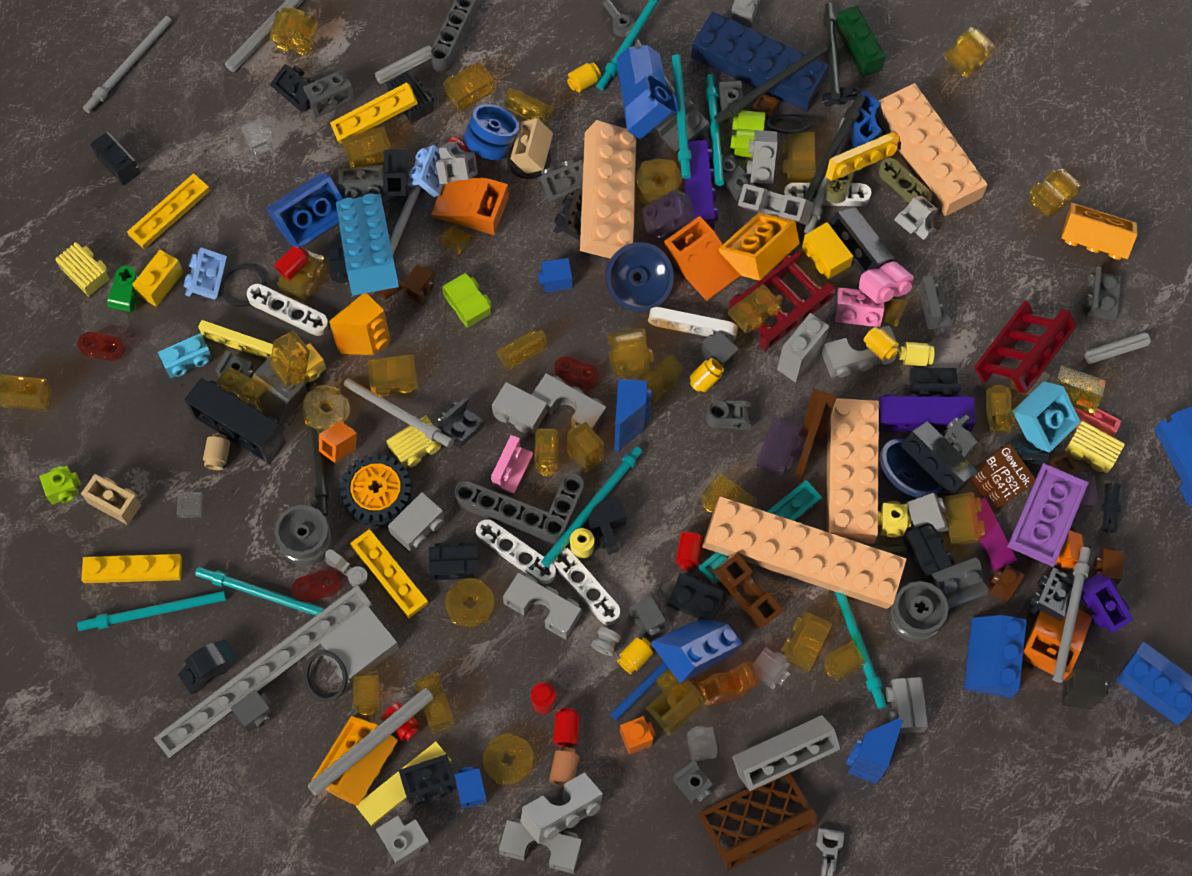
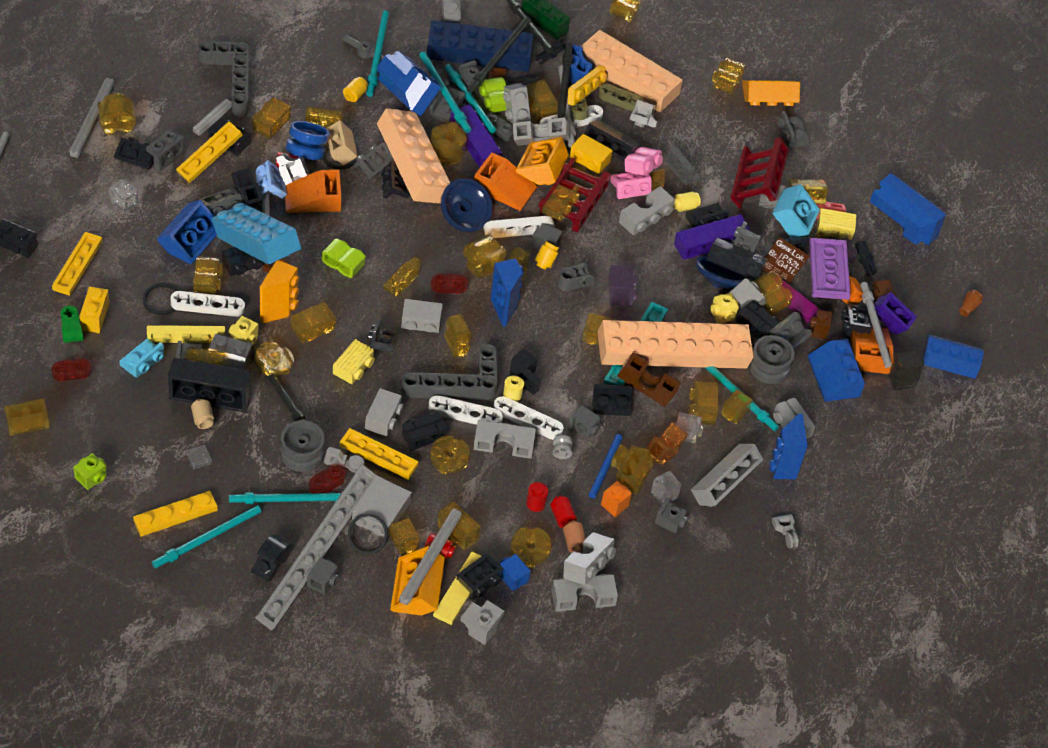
camera: 30 degrees left, 15 degrees down
(83, 269) = (28, 321): light yellow brick -> none
(111, 499) = (137, 467): tan brick -> none
(205, 273) = (129, 297): light blue bracket -> none
(289, 359) = (238, 324): clear yellow brick -> none
(292, 262) = (201, 265): red brick -> none
(337, 441) = (295, 377): orange brick -> none
(366, 147) = (213, 178): clear yellow brick -> none
(372, 473) = (340, 402): wheel -> none
(419, 284) = (303, 258): reddish brown brick -> none
(431, 432) = (367, 345): light grey bar -> none
(456, 239) = (313, 222): clear yellow slope -> none
(511, 466) = (434, 354): bright pink bracket -> none
(555, 275) = (402, 223): blue brick -> none
(557, 393) = (470, 303): light grey arch -> none
(585, 447) = (484, 324): clear yellow brick -> none
(629, 461) = (517, 330): teal bar -> none
(635, 655) = (588, 449): yellow brick -> none
(668, 213) = (466, 158): clear purple brick -> none
(689, 550) = (591, 370): red brick -> none
(696, 647) = (633, 426): blue slope -> none
(763, 840) = (742, 532): reddish brown fence -> none
(803, 347) = (608, 216): light grey brick -> none
(815, 424) = (644, 259): reddish brown fence -> none
(853, 470) = (679, 281): light nougat brick -> none
(881, 344) = (662, 197): yellow brick -> none
(999, 409) = (762, 216): clear yellow brick -> none
(1117, 348) = (819, 160): light grey axle -> none

